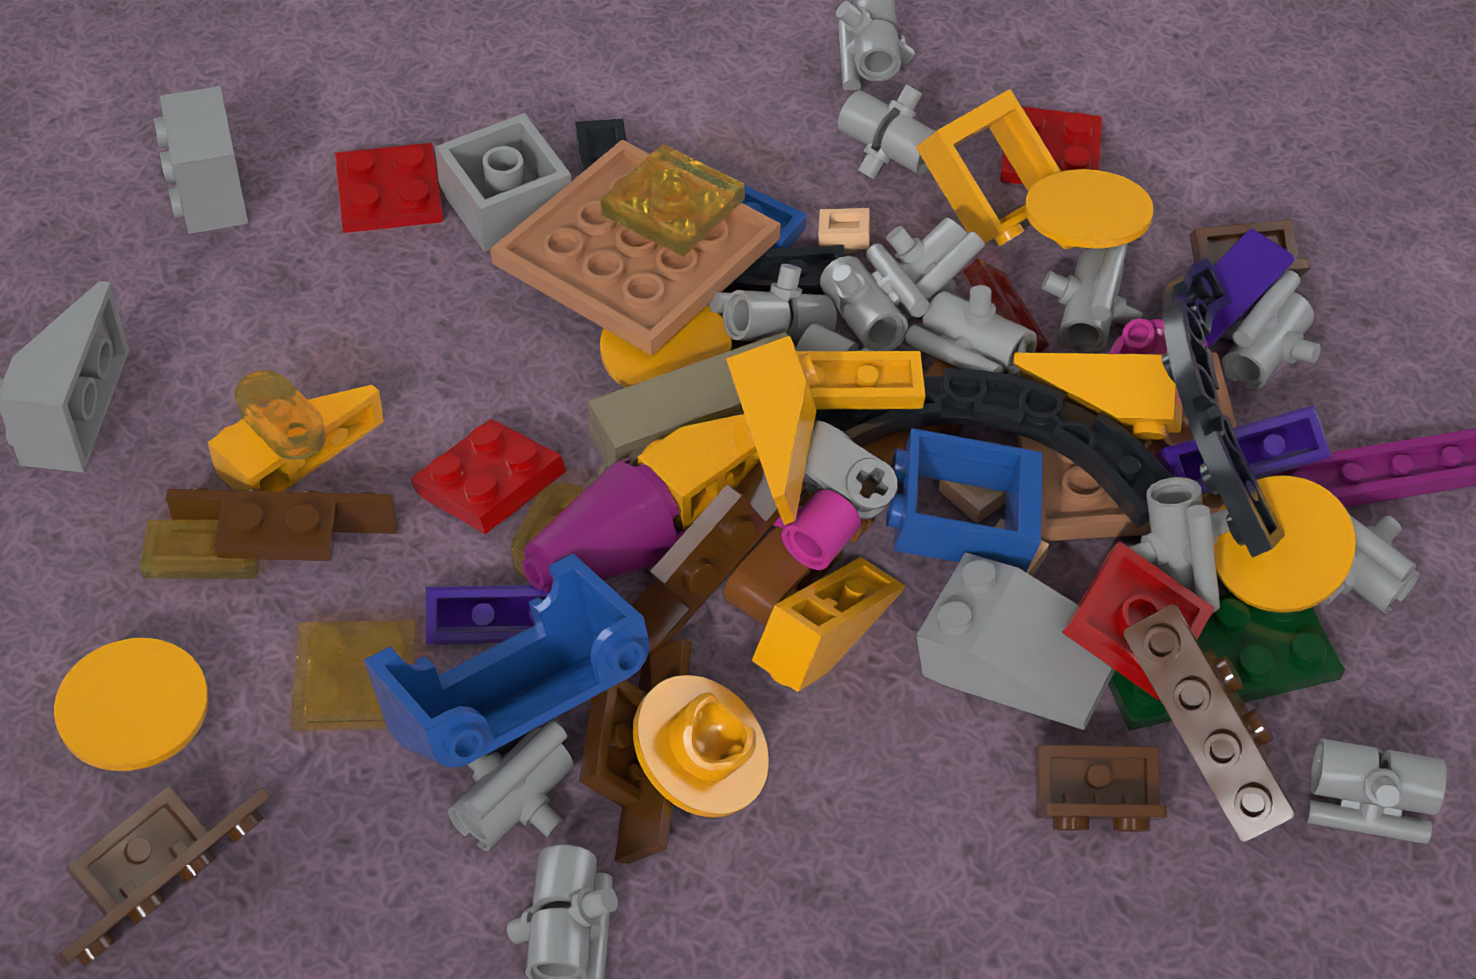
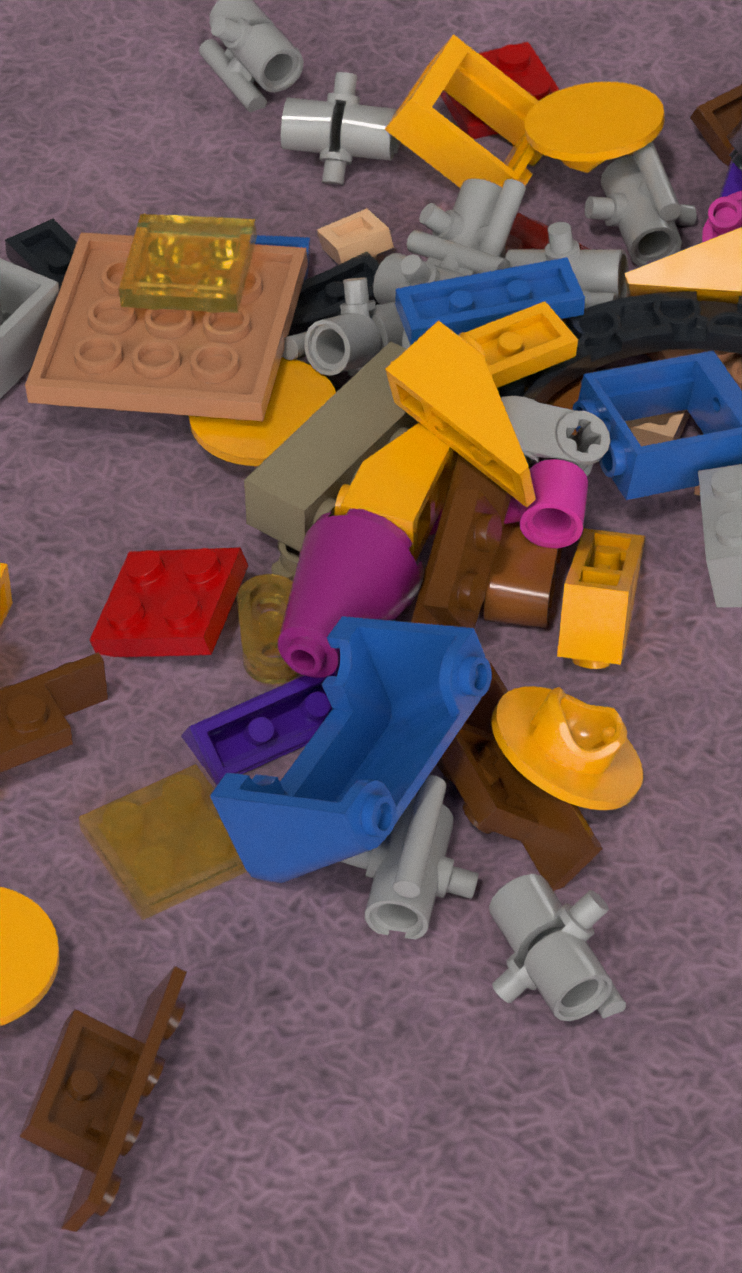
camera: 25 degrees left, 5 degrees down
(867, 325) = (489, 296): none -> blue plate

